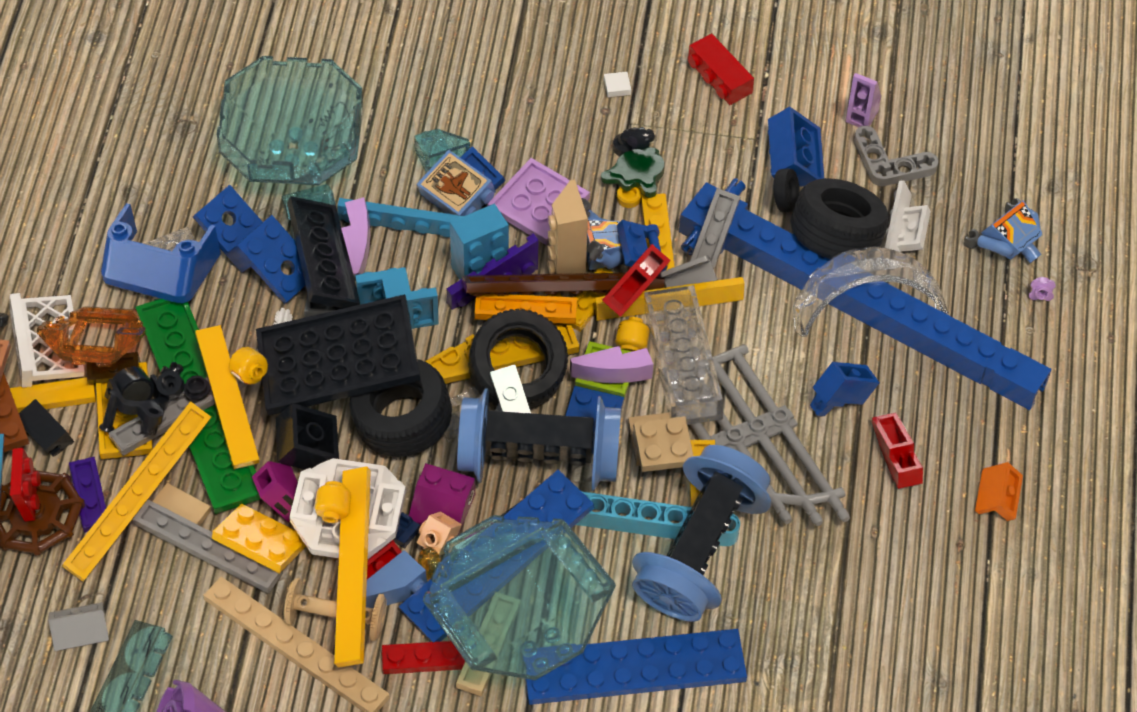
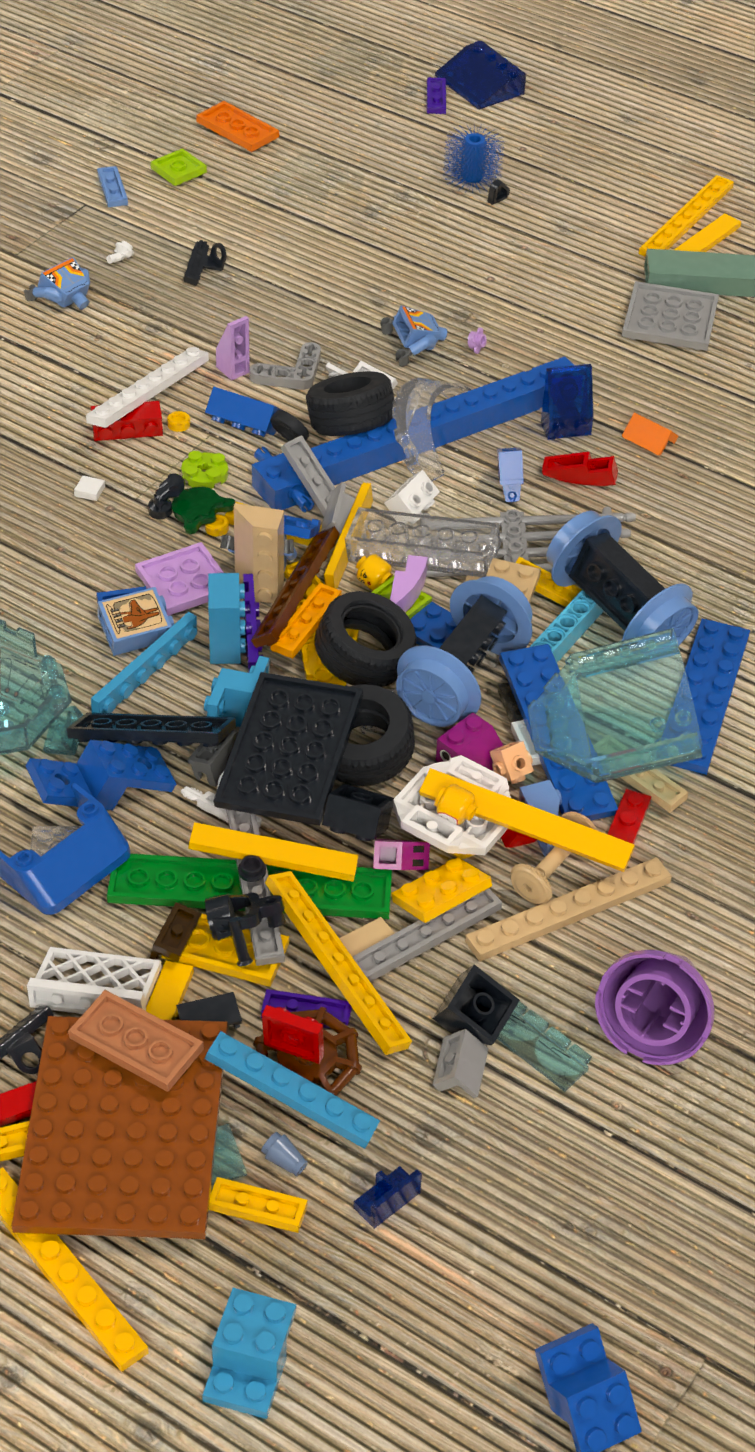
camera: 65 degrees left, 10 degrees down
(57, 335) = (174, 892): clear orange windscreen -> none
(136, 611) = (476, 1005): none -> black slope
(170, 382) = (240, 882): black arm -> none
(248, 365) = (260, 814): yellow head -> none
(357, 234) = (143, 696): lavender slope -> none
(428, 559) = (535, 771): clear yellow piece -> none
(435, 143) = (75, 619): clear light blue slope -> none
(509, 390) = (397, 643): light aqua plate -> none
(636, 280) = (332, 532): red slope -> none
(697, 143) = (215, 468): none -> lime plate
(752, 321) = (413, 495): none -> white brick
(753, 107) = (178, 421): none -> yellow tile
(765, 61) = (147, 387): none -> white plate
(971, 397) = (568, 402): none -> clear blue slope
(1004, 21) = (200, 260): none -> black piece

